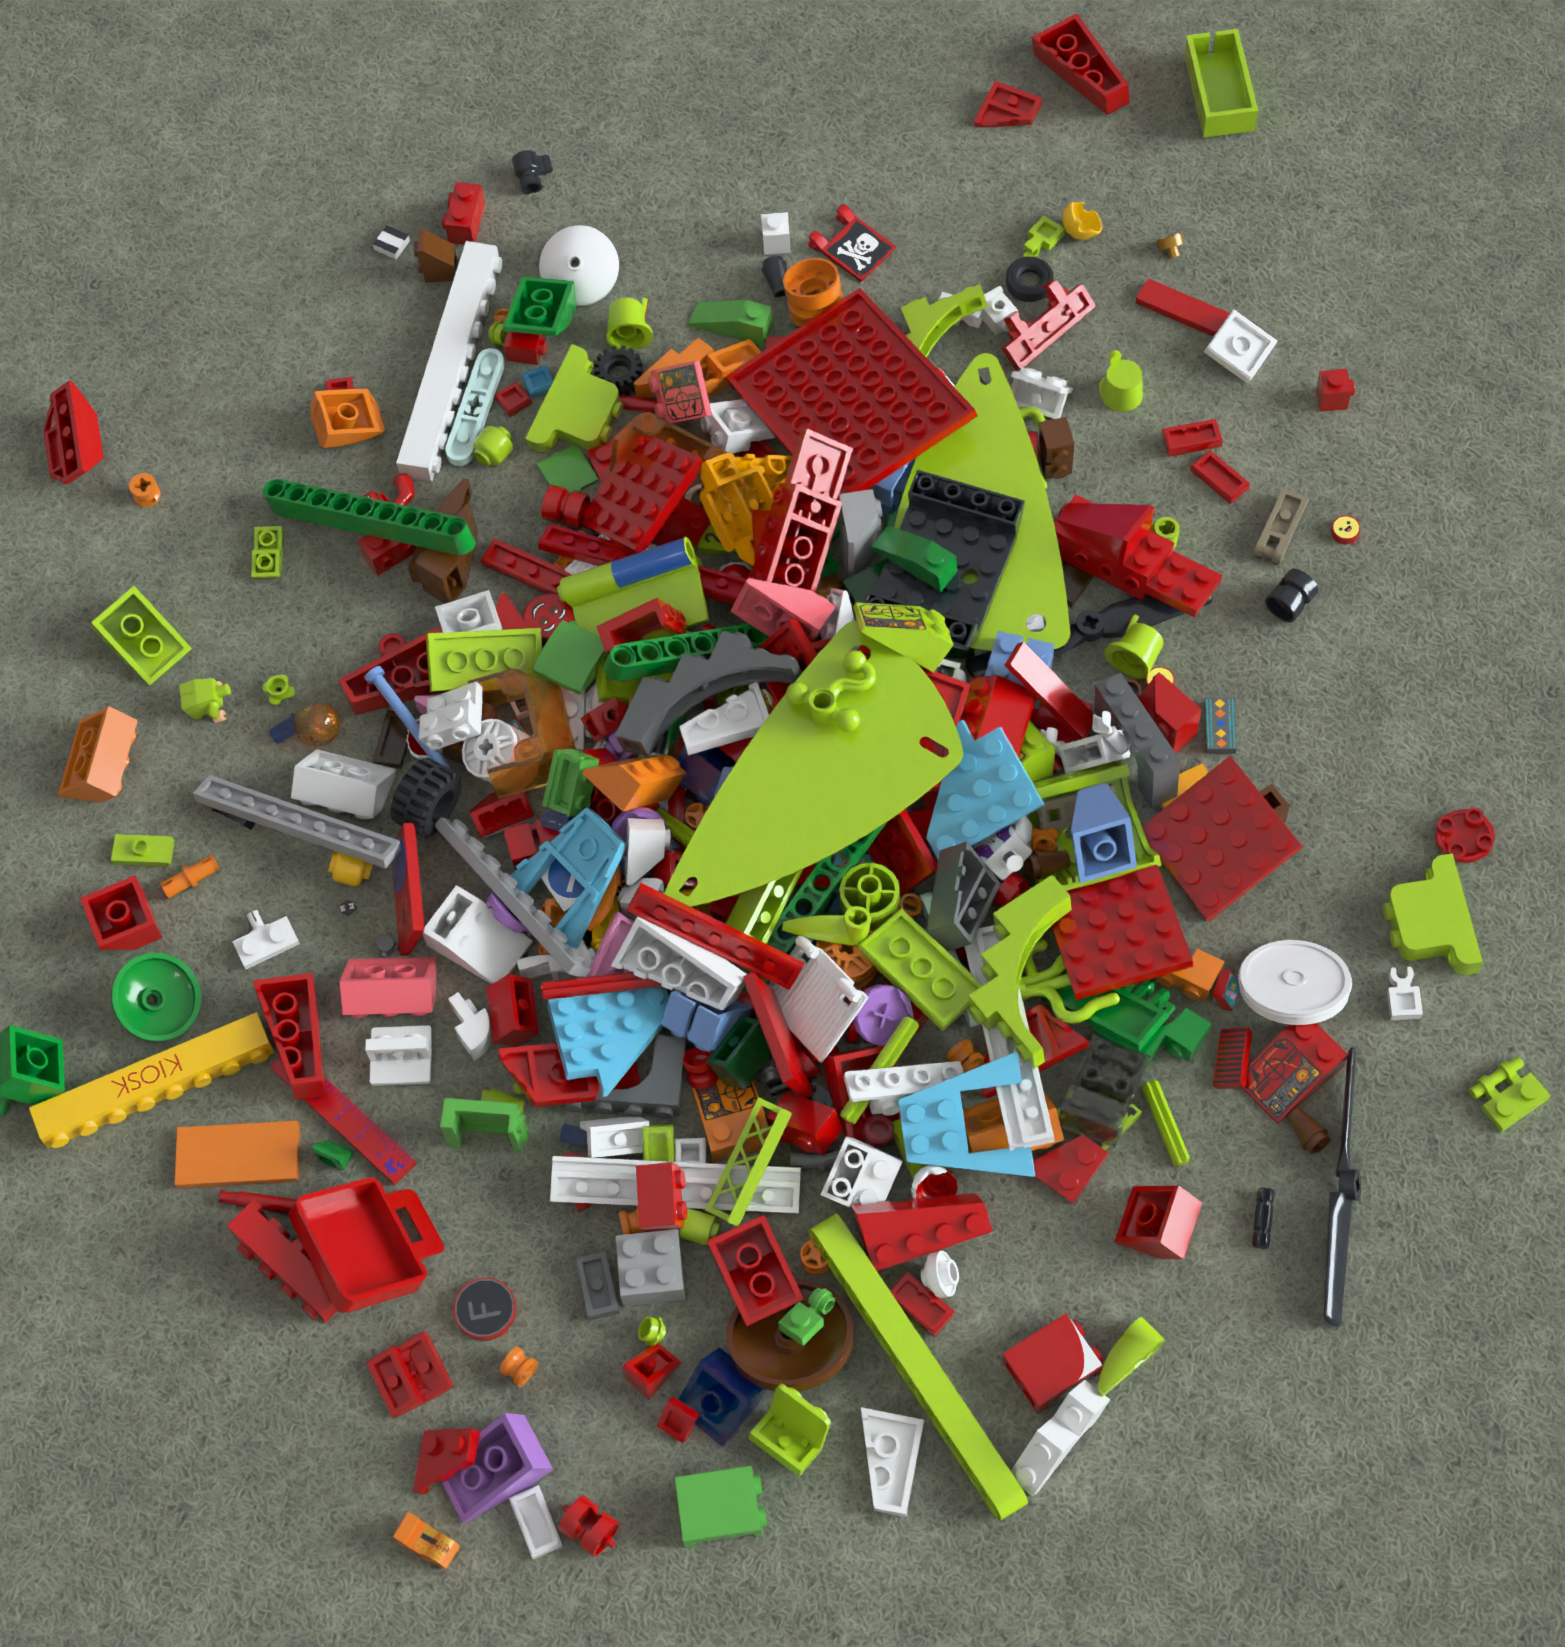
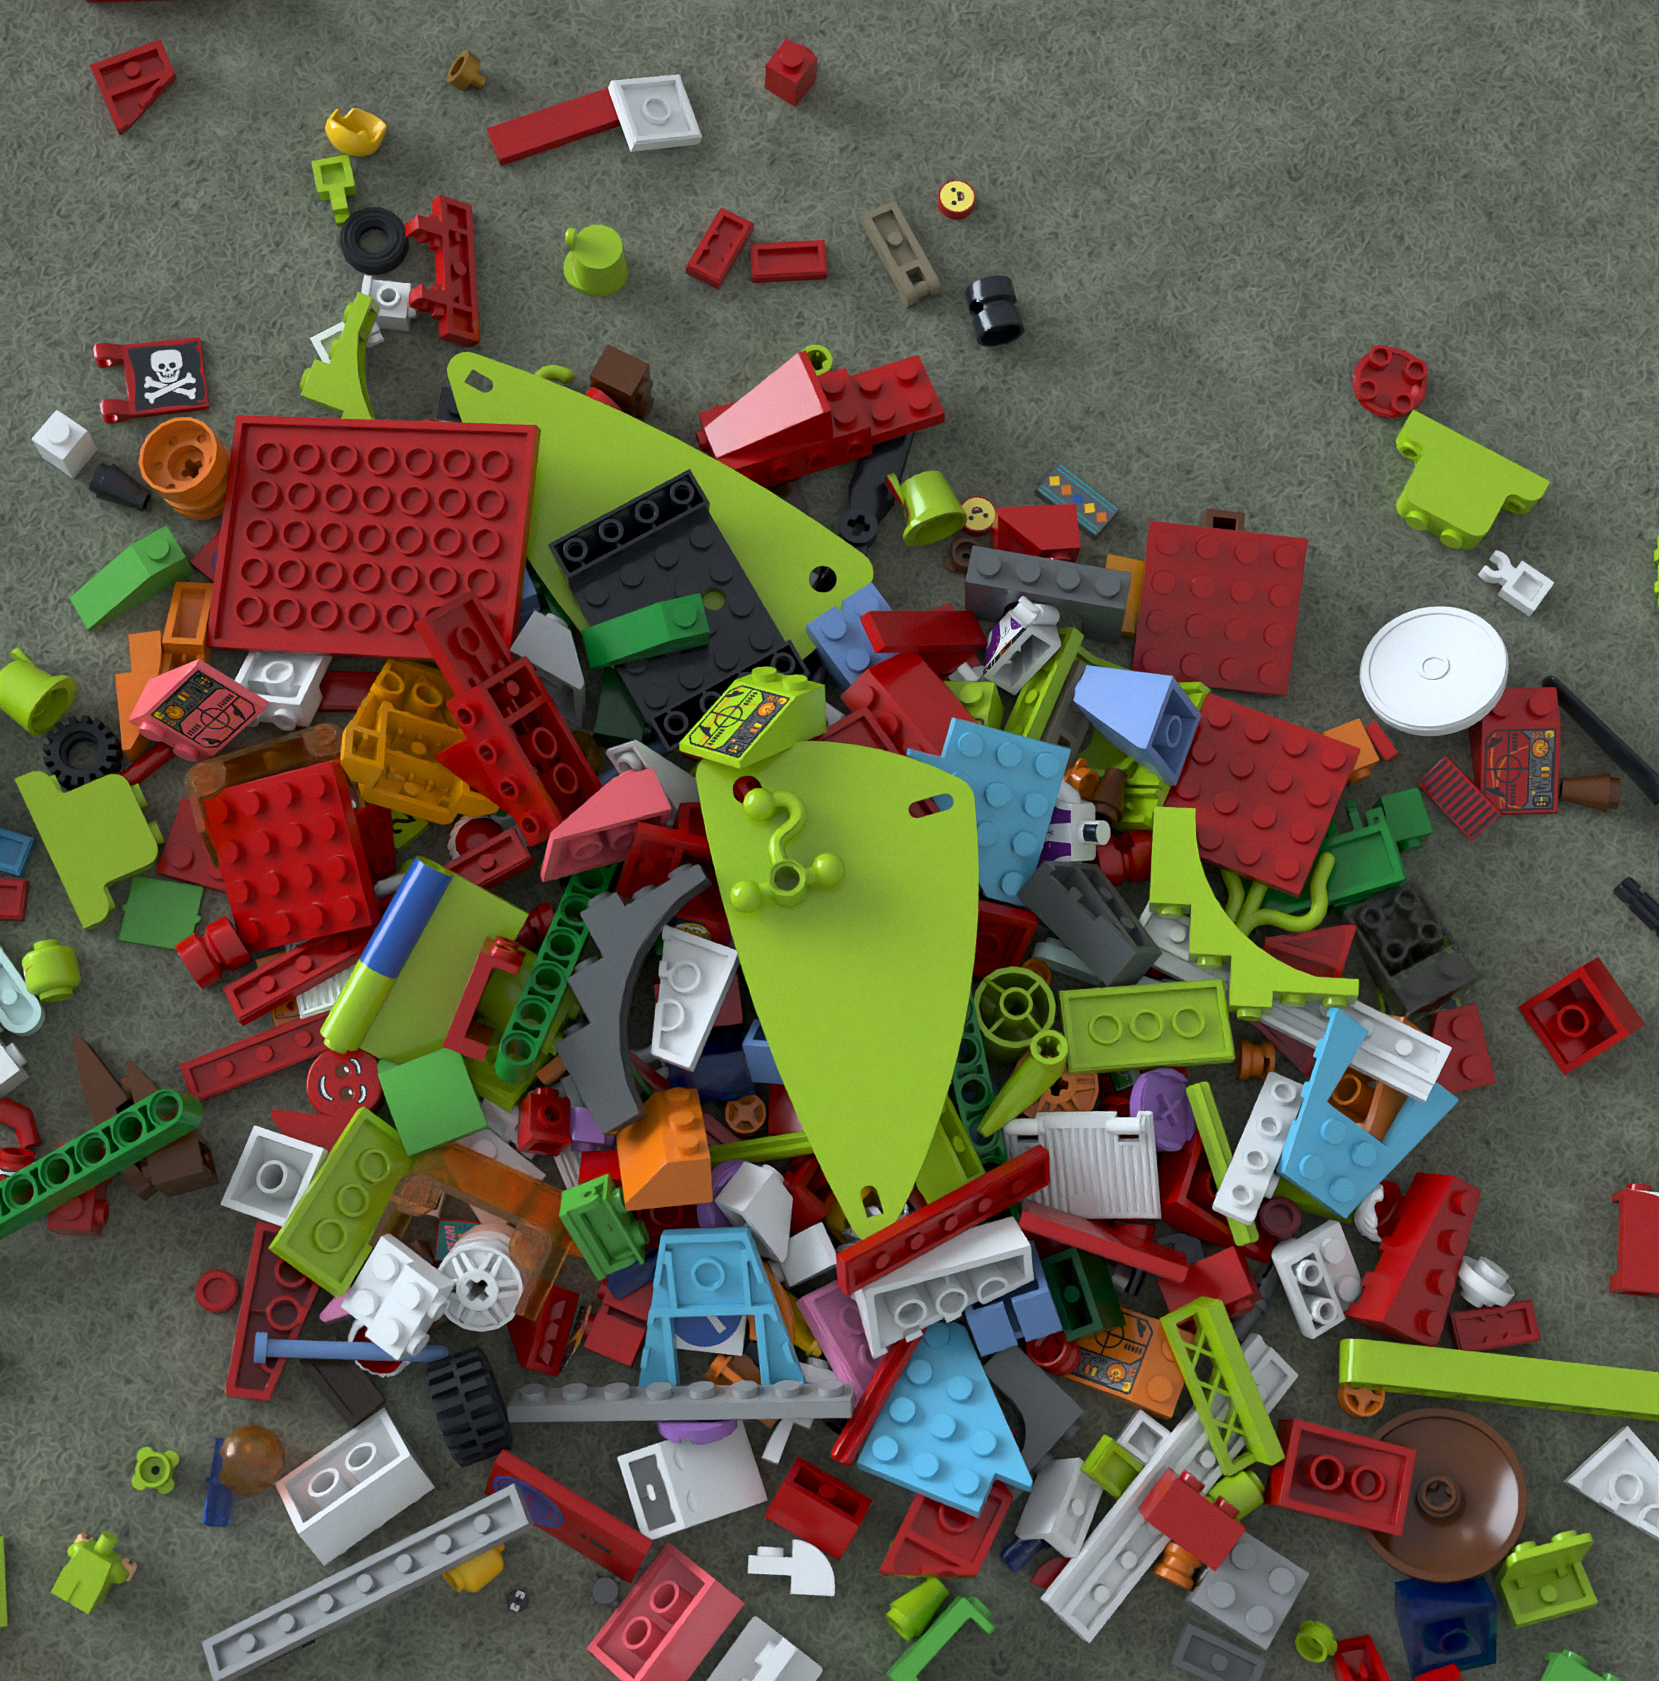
camera: 65 degrees left, 10 degrees up
(804, 1322) = (1440, 1471): bright green plate -> none
(1043, 394) = (533, 343): white bracket -> none
(1166, 1123) = (1482, 921): lime axle -> none

